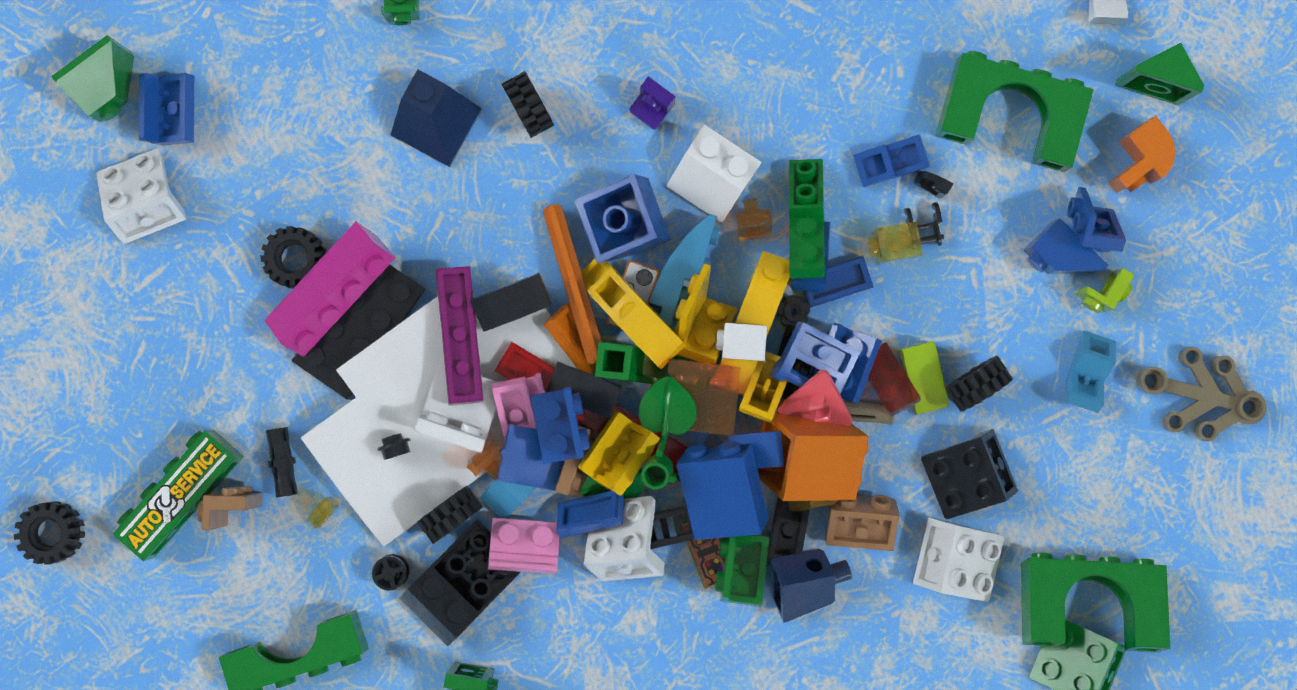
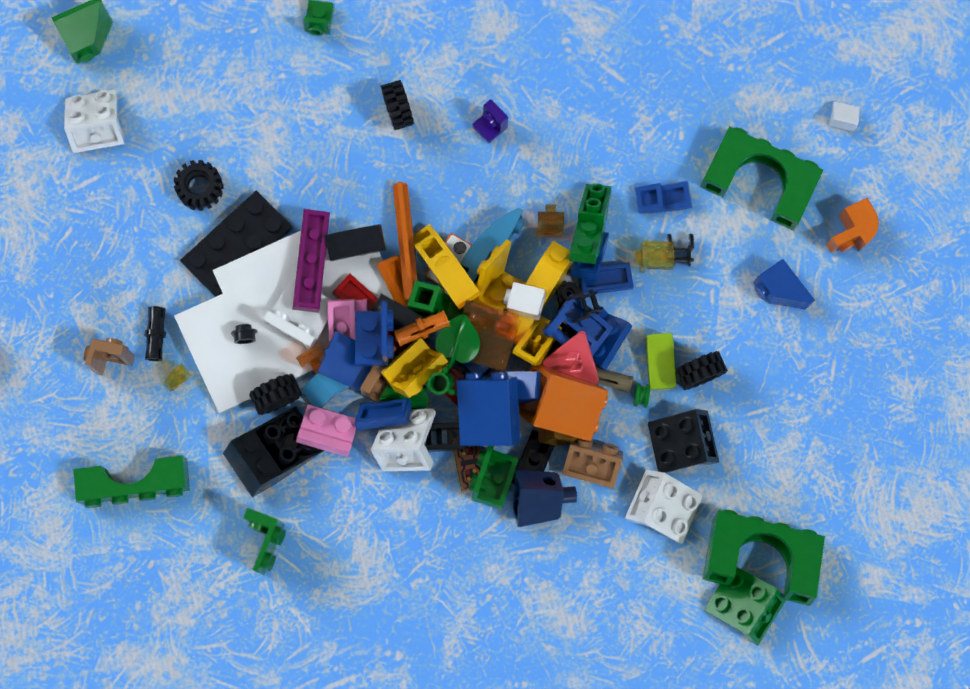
camera: 10 degrees right, 10 degrees down
(166, 108) = (128, 61): blue bracket -> none
(177, 495) = (67, 344): brick -> none
(329, 289) = (220, 210): dark pink brick -> none
(384, 574) = (218, 427): black wheel -> none
(434, 118) = (325, 104): dark blue slope -> none
(618, 403) = (422, 328): none -> orange pin
(622, 219) = (452, 200): blue slope -> none
(713, 173) = (527, 181): white slope -> none
(825, 342) = (586, 314): none -> black piece
(892, 382) = (634, 359): clear red tile -> none
(908, 426) = (641, 395): none -> green bush
(933, 183) = (692, 219): black tile -> none
(1088, 371) = (789, 380): dark azure slope -> none
(1095, 226) = (810, 271): blue bracket -> none
(1115, 290) = (819, 322): lime bracket -> none
(1164, 77) = (876, 170): green slope -> none
(1207, 395) = (877, 415): dark tan plant -> none

